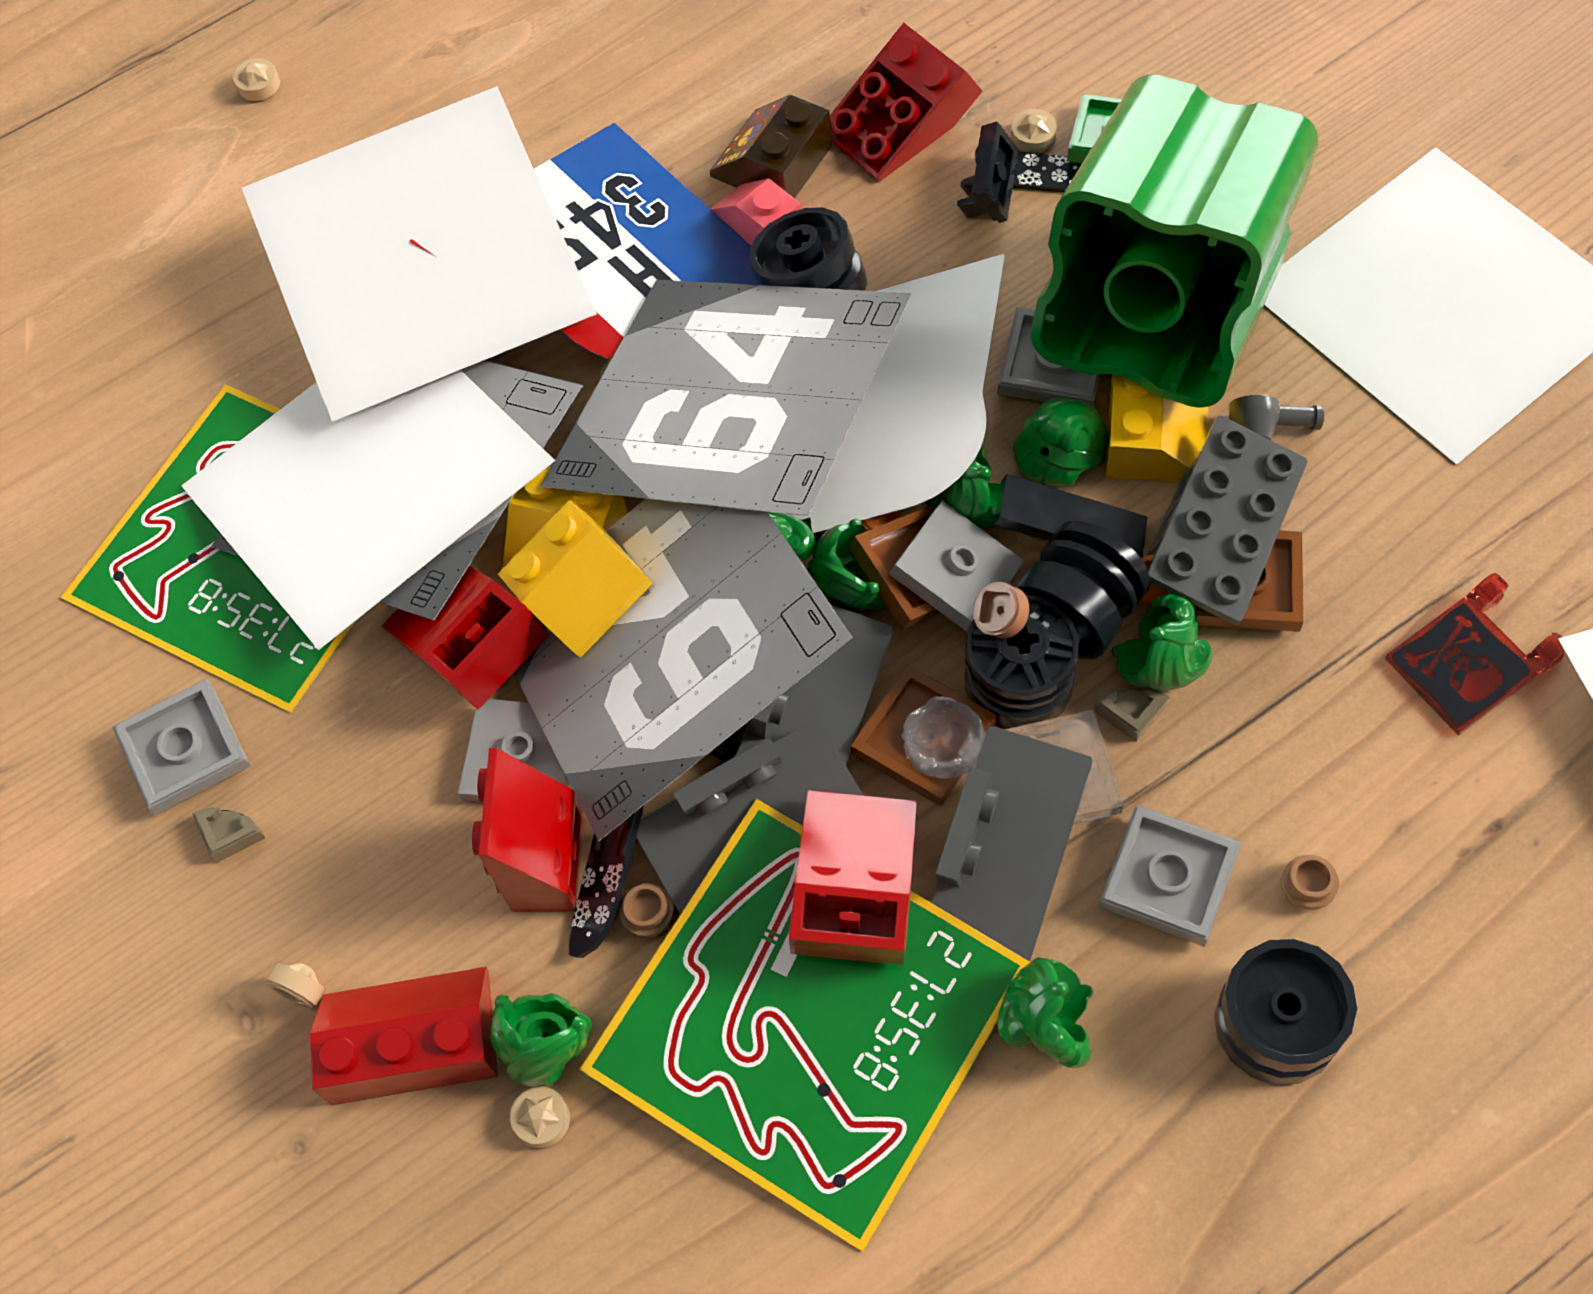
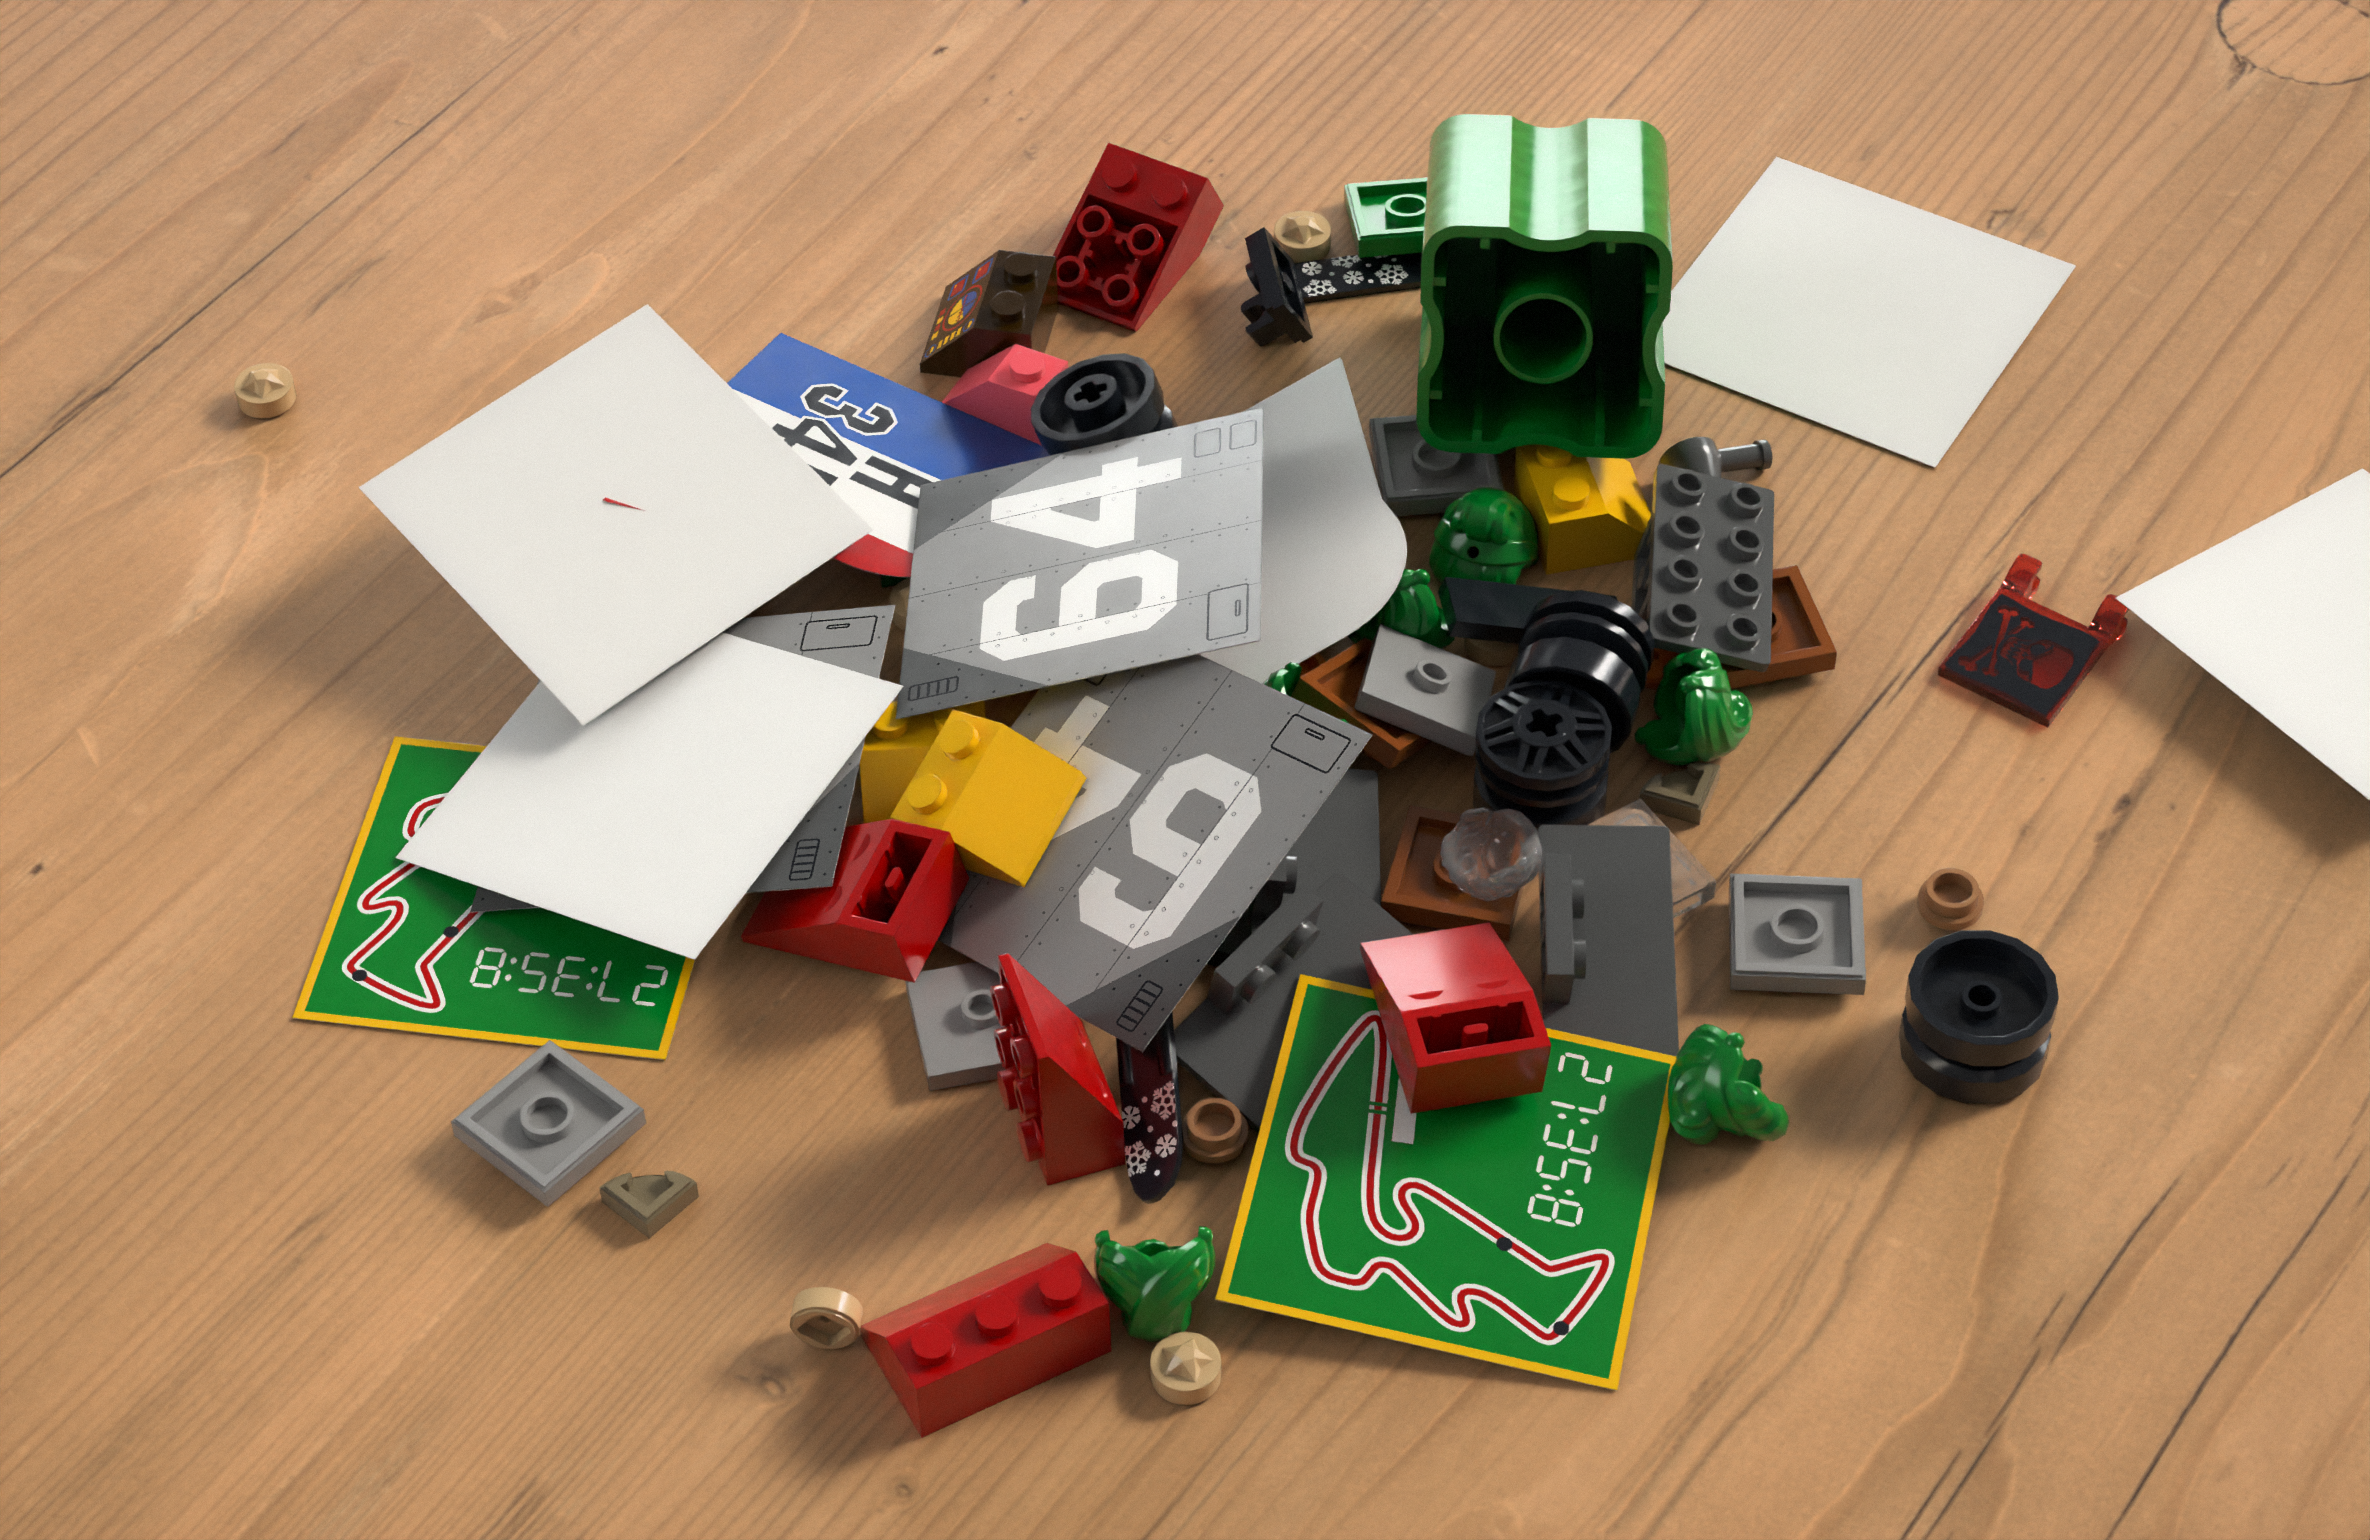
camera: 25 degrees left, 15 degrees down
(1001, 610) = (1509, 695): nougat tile -> none

